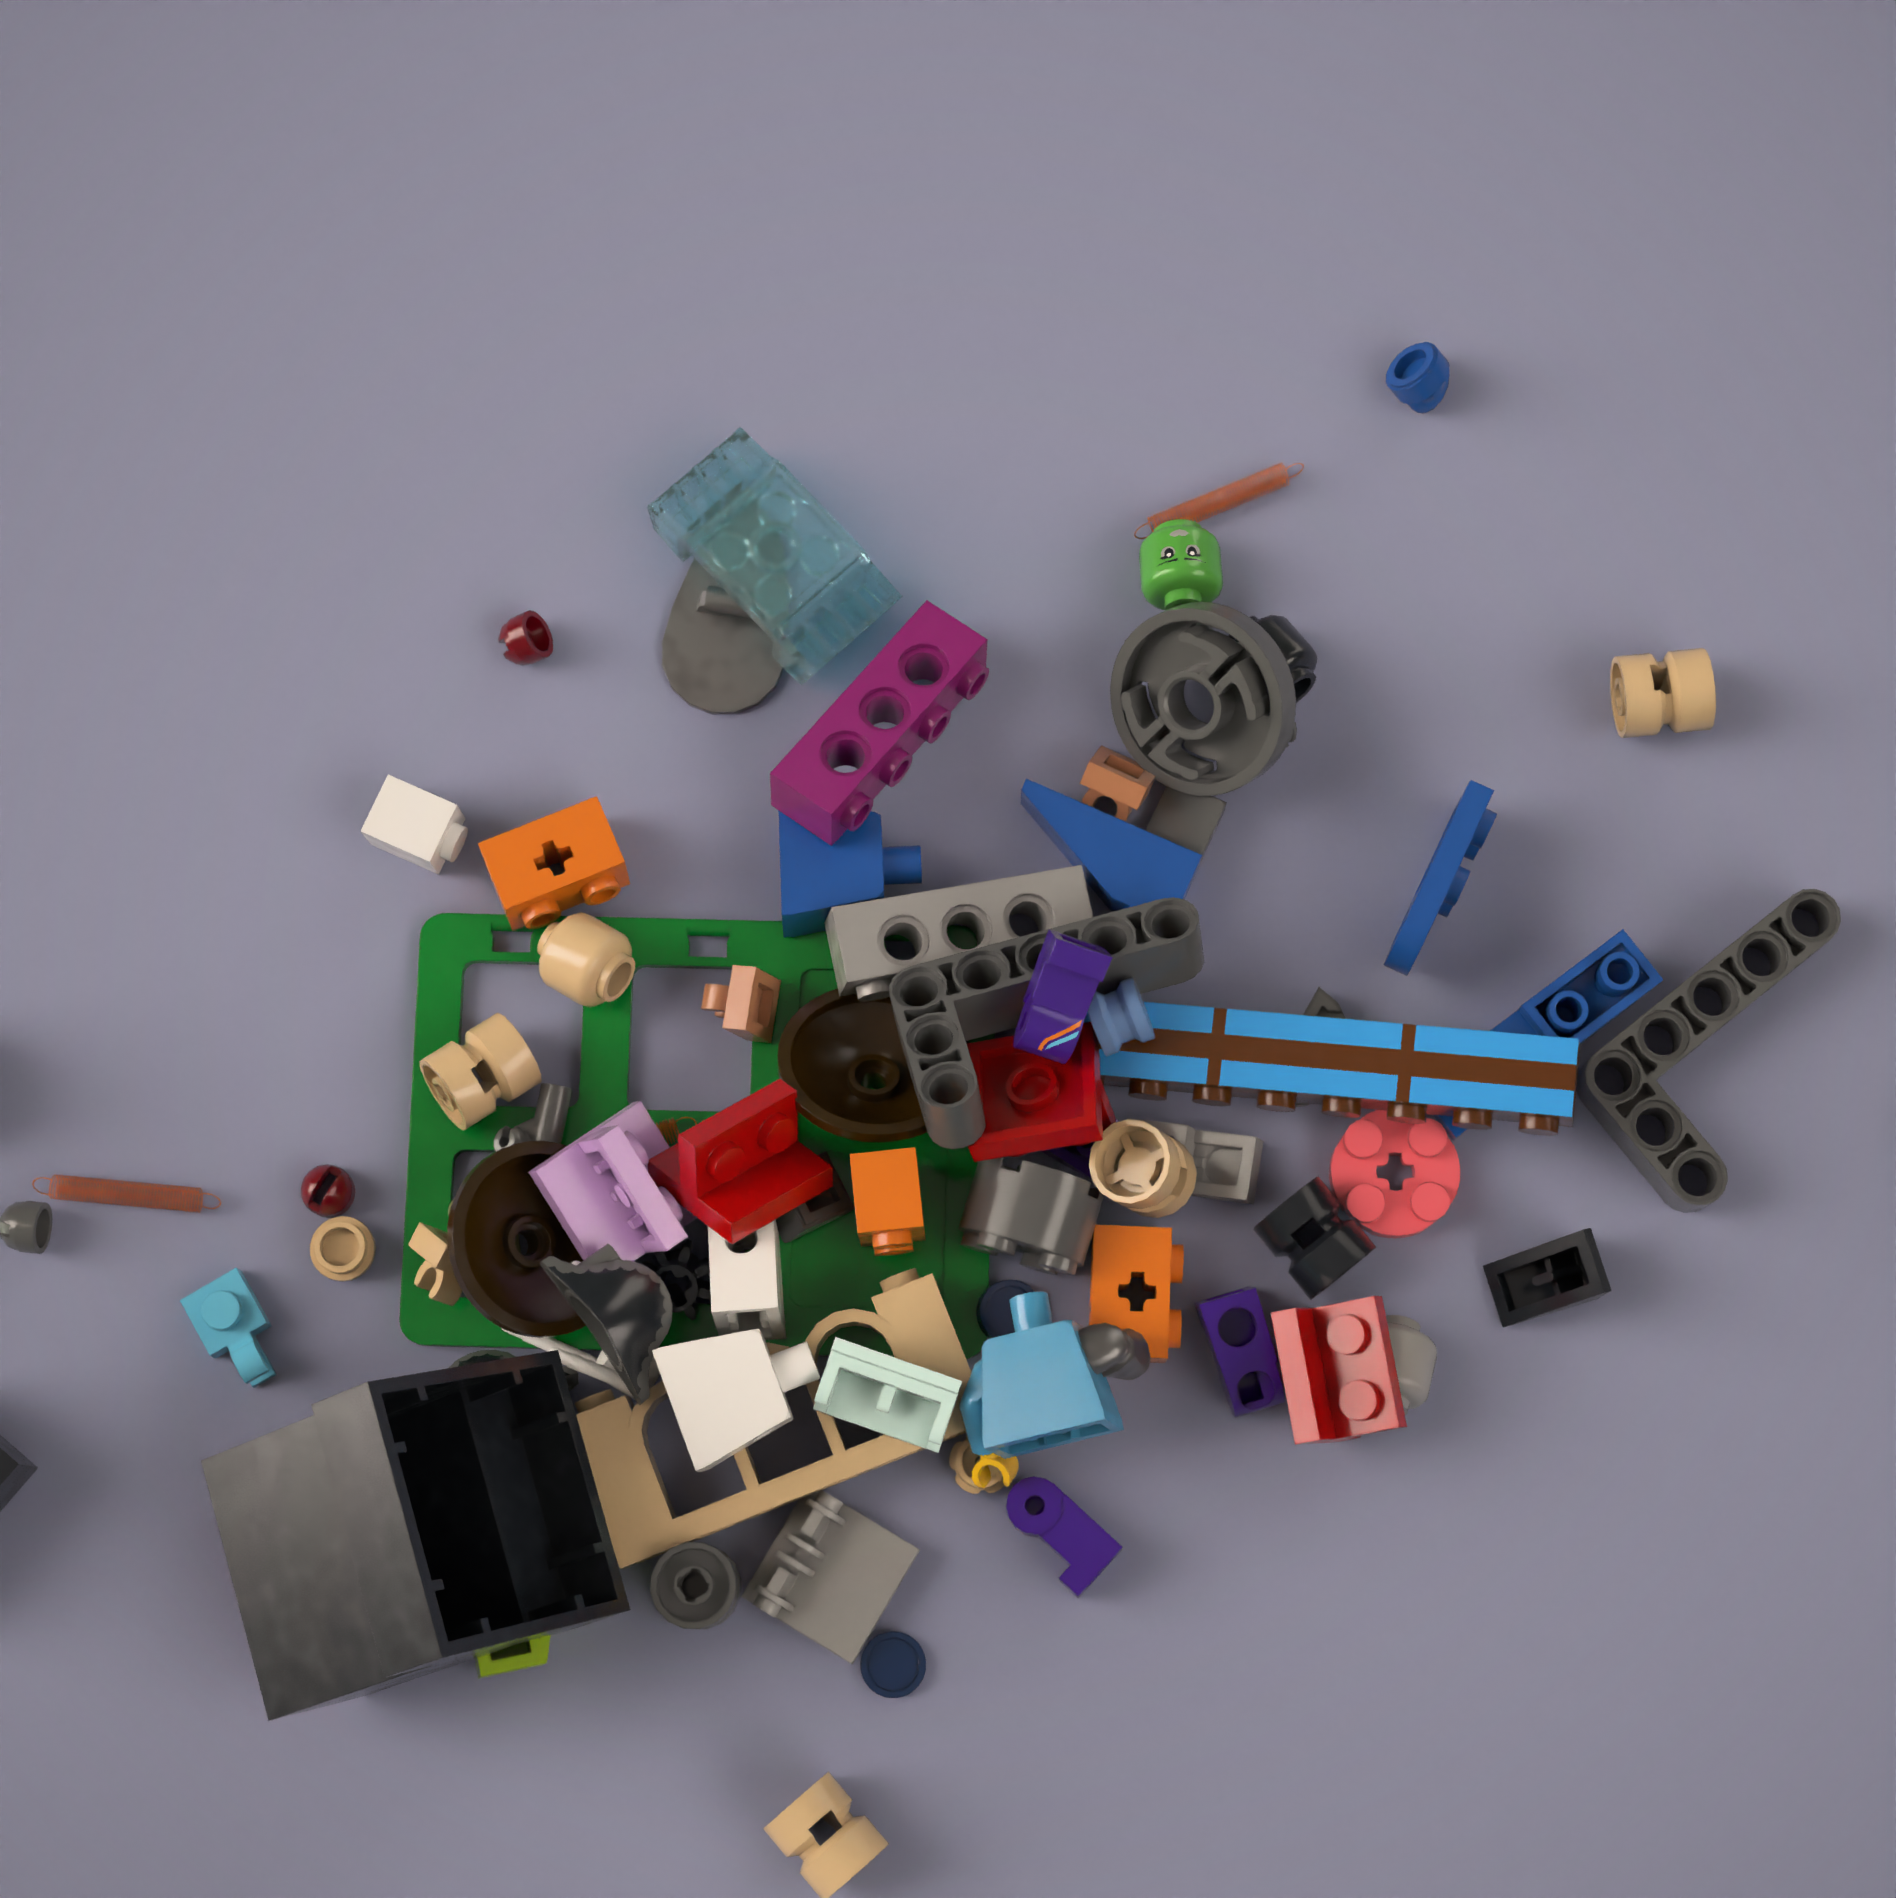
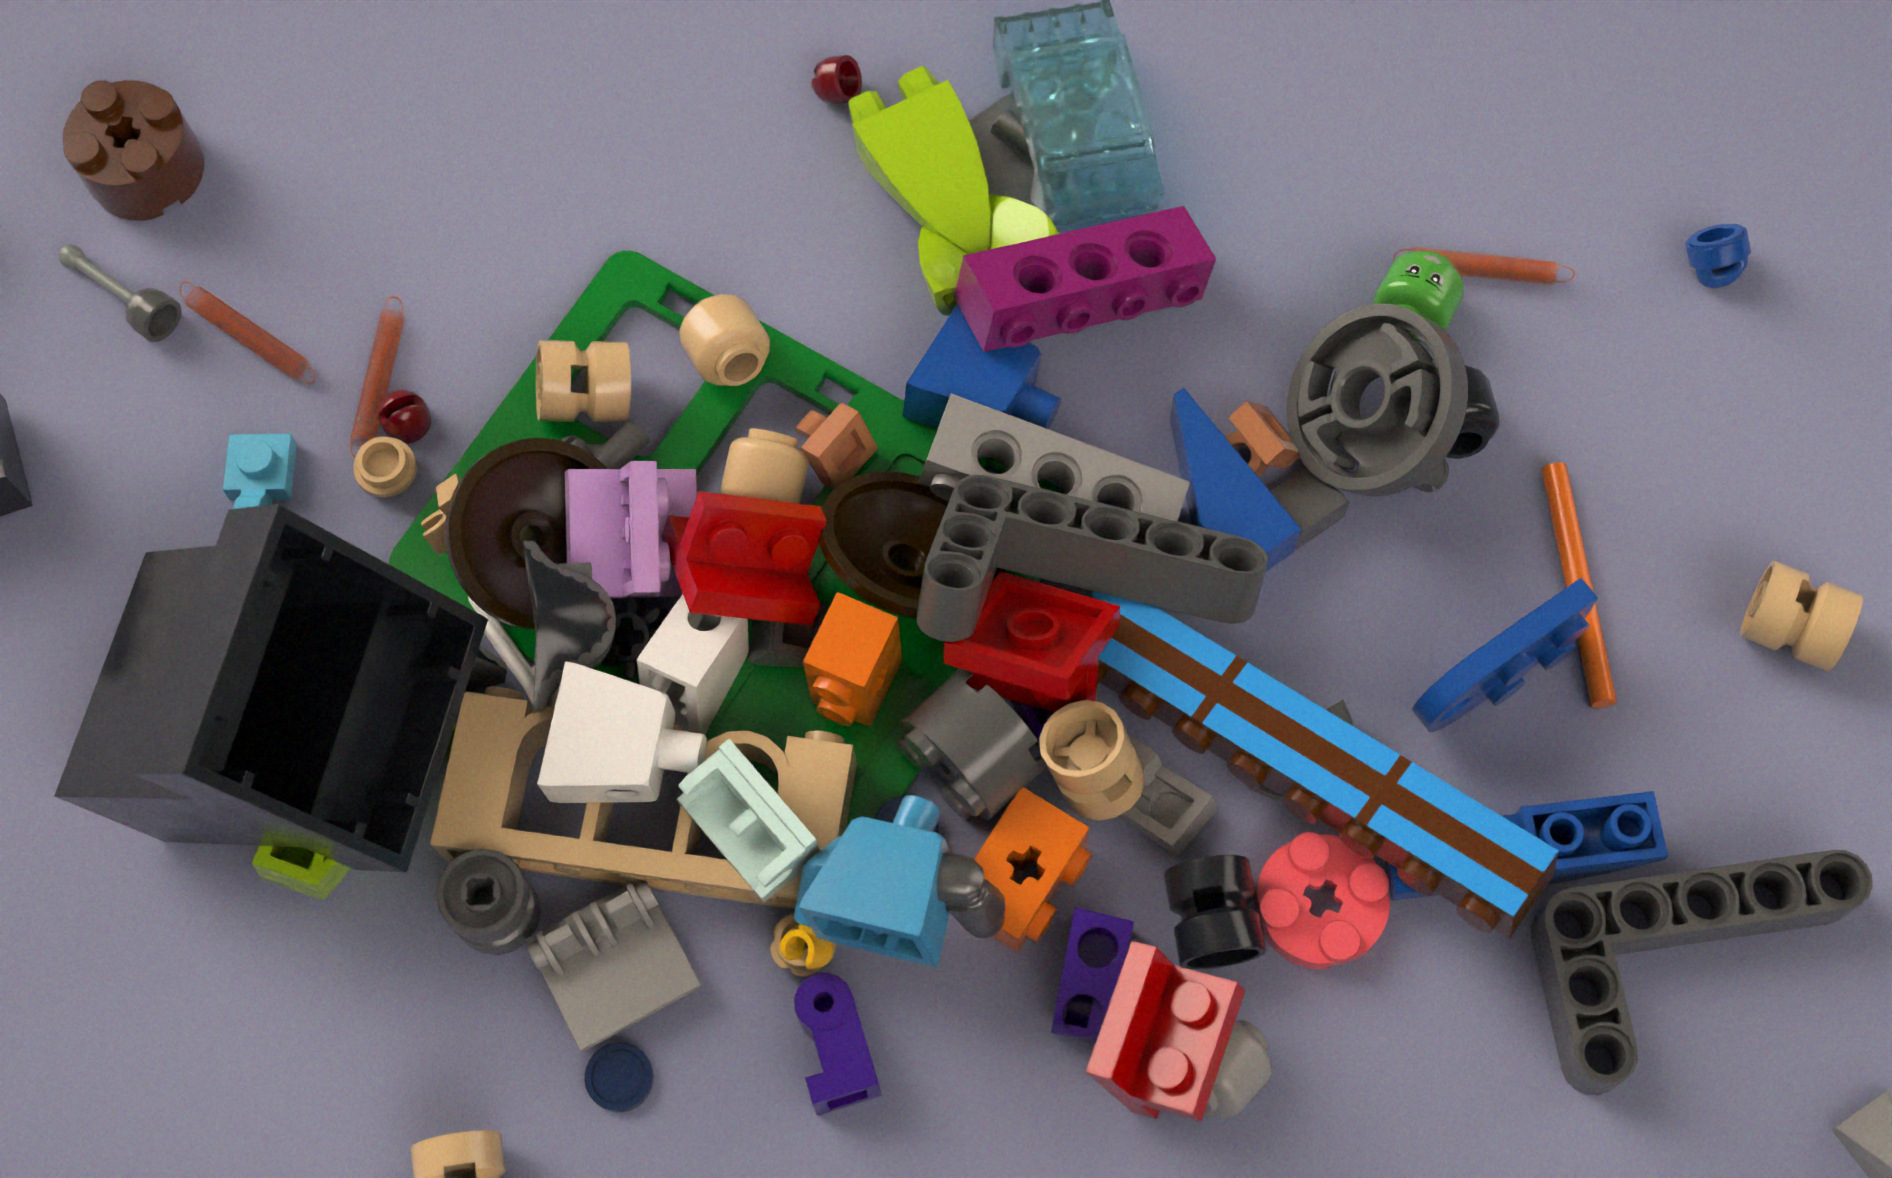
camera: 30 degrees right, 10 degrees down
(266, 1165) = (376, 376): none -> orange piece
(415, 825) = (656, 169): white brick -> none
(574, 838) = (748, 254): orange brick -> none
(678, 687) = (935, 172): none -> lime hips
(700, 1068) = (765, 467): none -> tan head
(1060, 996) = (1099, 558): dark purple leg -> none
(1120, 1017) = (1146, 614): medium blue wheel -> none
(1456, 758) = (1574, 567): none -> orange bar
(1547, 1278) = (1412, 1071): black slope -> none

